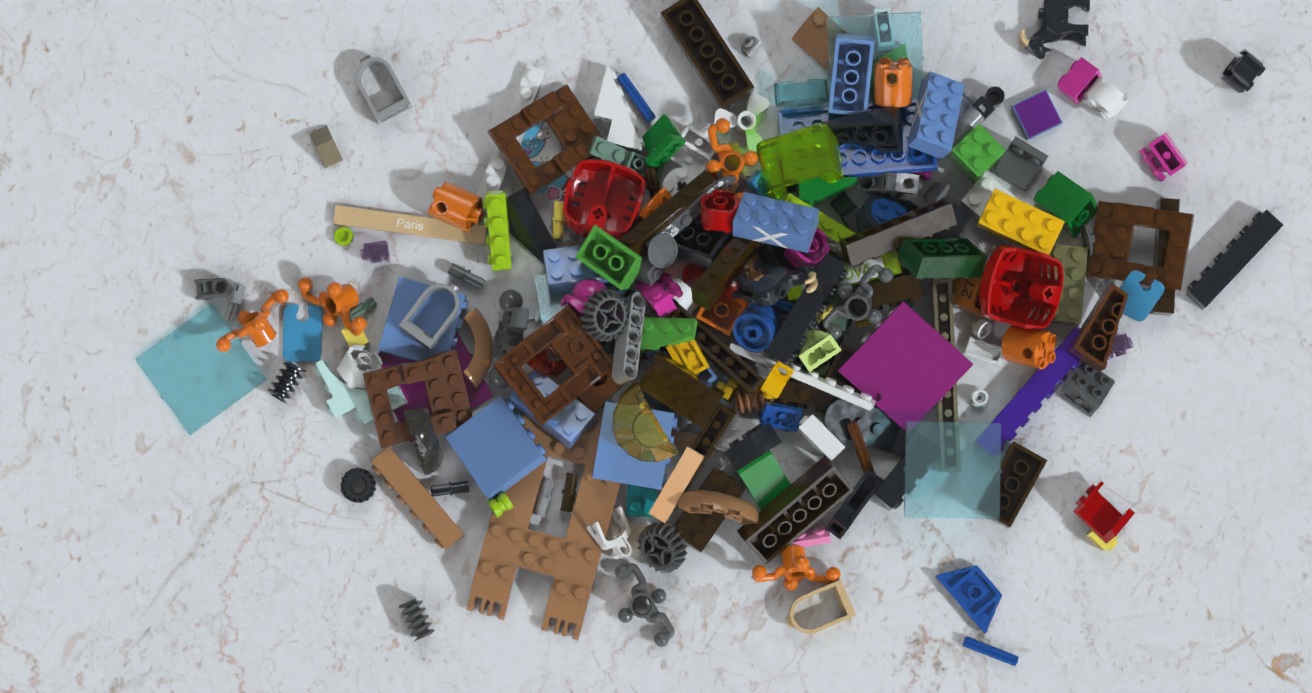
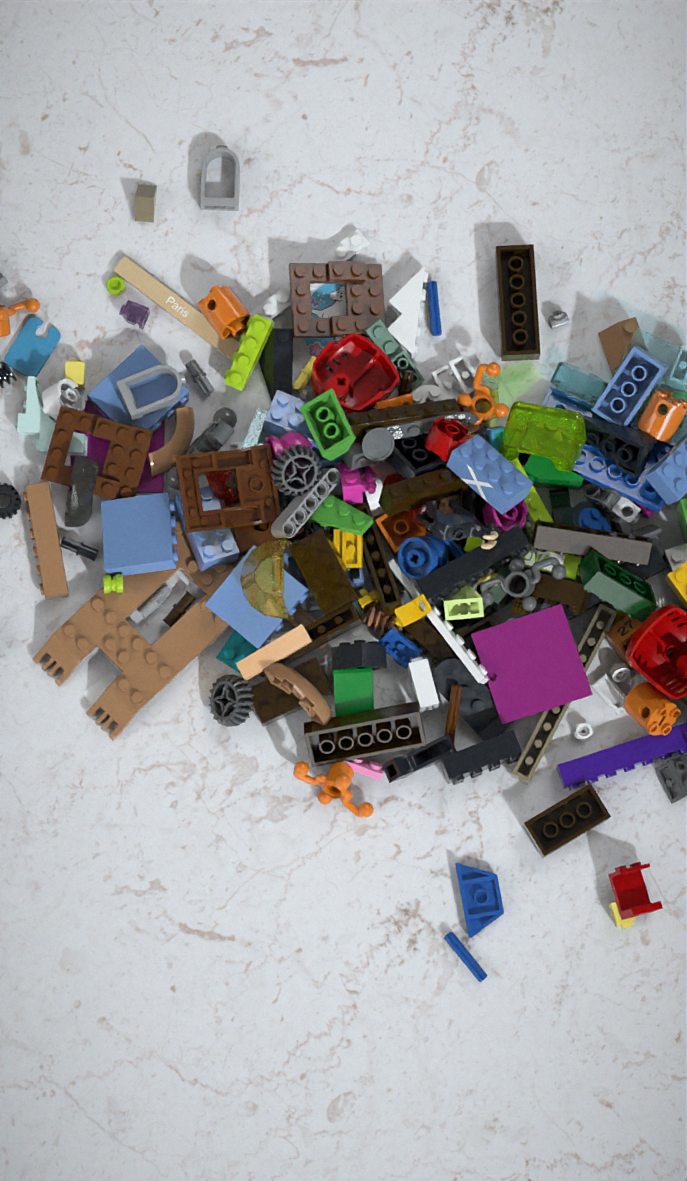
camera: 30 degrees right, 5 degrees down
(336, 302) = (76, 335): orange wheel -> none
(362, 308) = (91, 354): sand green axle -> none
(619, 545) = (196, 678): white piece -> none
(653, 615) = (188, 754): dark grey wheel -> none
(662, 142) = (433, 357): green bracket -> none
(755, 105) = (533, 371): piece -> none
(843, 601) = (362, 834): tan window -> none
(952, 470) = (521, 776): clear light blue piece -> none

